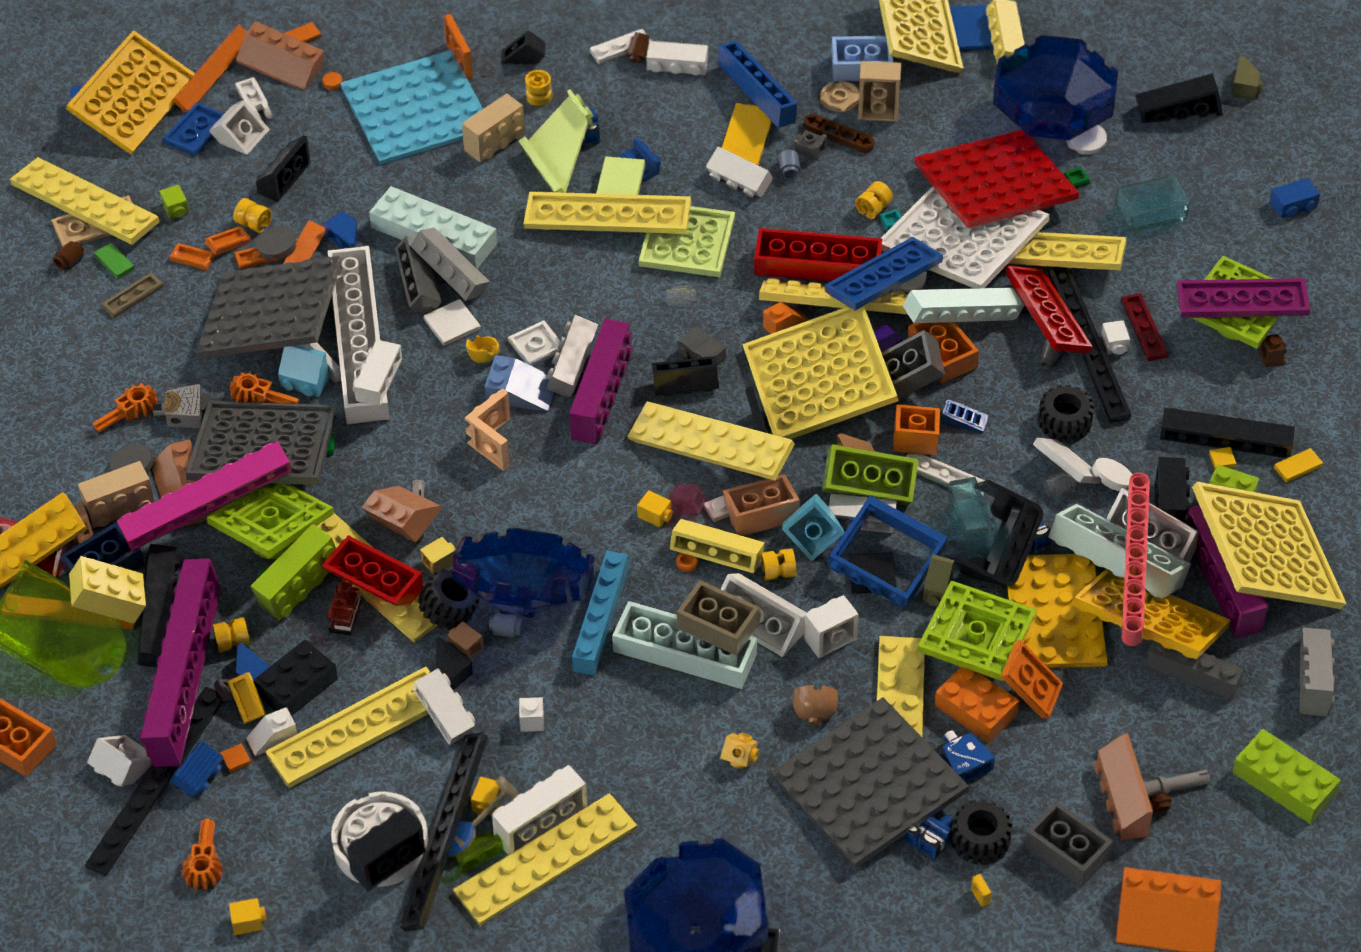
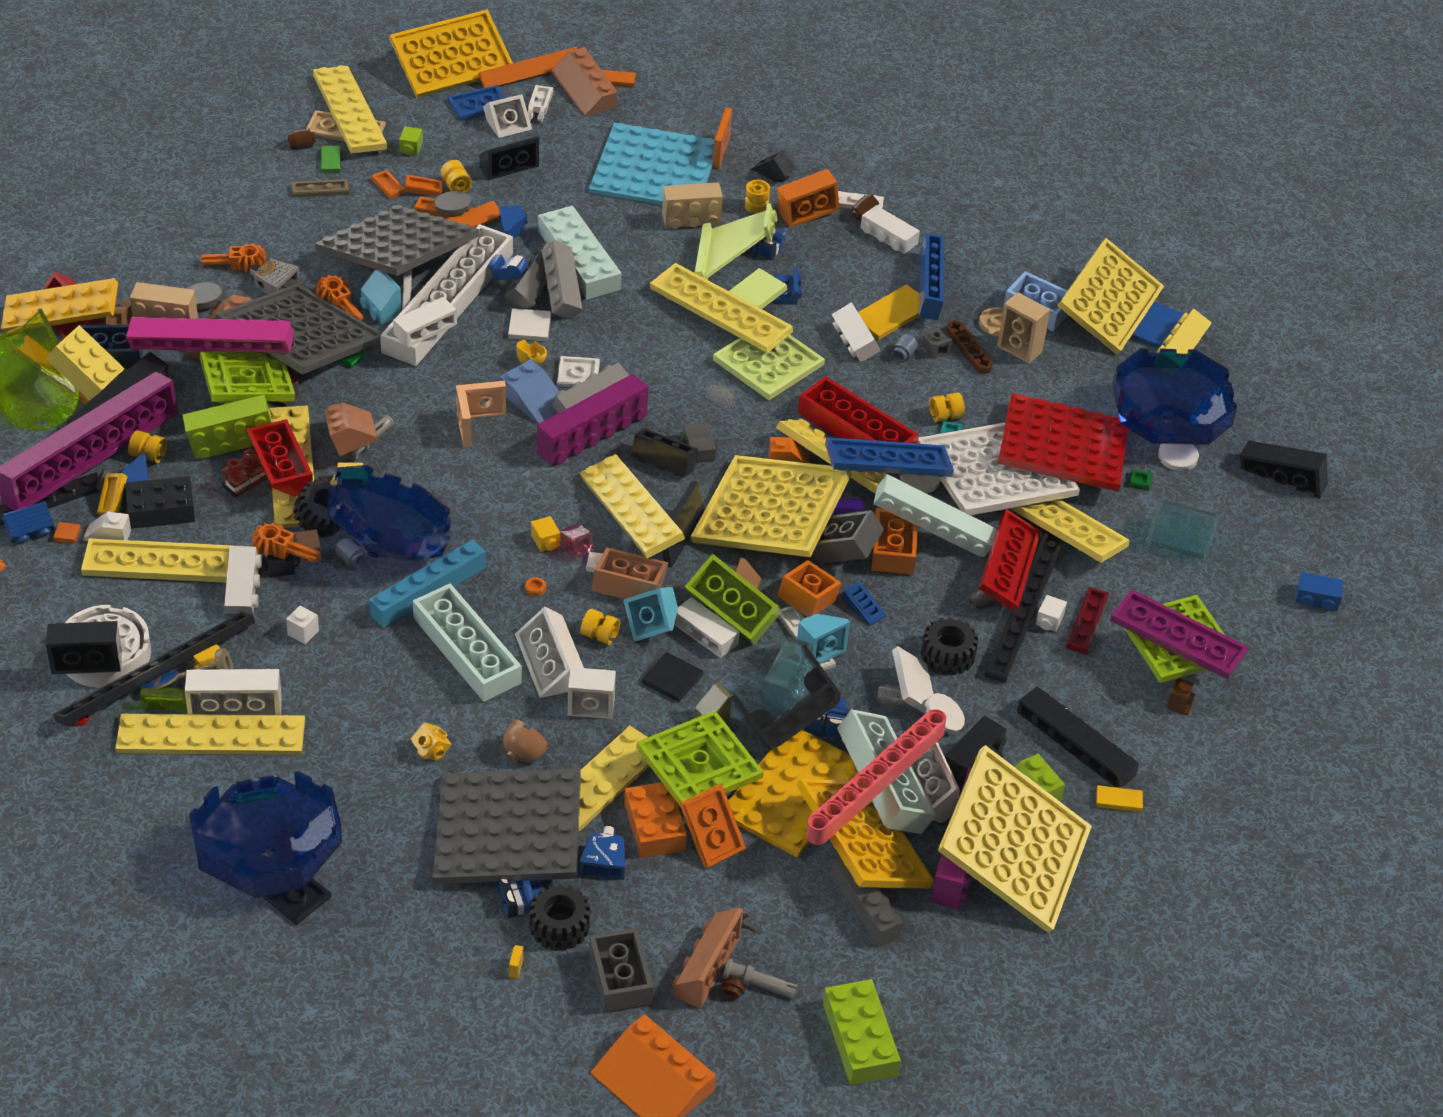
camera: 30 degrees right, 5 degrees down
(332, 80) = (610, 118): orange tile -> none
(393, 278) = (507, 268): none -> blue leg
(449, 652) = (280, 543): none -> orange gear
(589, 65) = (808, 198): none -> orange brick
(716, 545) = (564, 584): light yellow brick -> none
(718, 617) = (498, 630): dark tan brick -> none
(899, 522) = (676, 632): blue window -> none
(970, 461) = (826, 634): none -> medium azure slope
(1222, 457) = (1056, 756): yellow tile -> none
(1246, 80) = (1363, 480): olive slope -> none
(1316, 672) = (969, 965): light grey wedge -> none

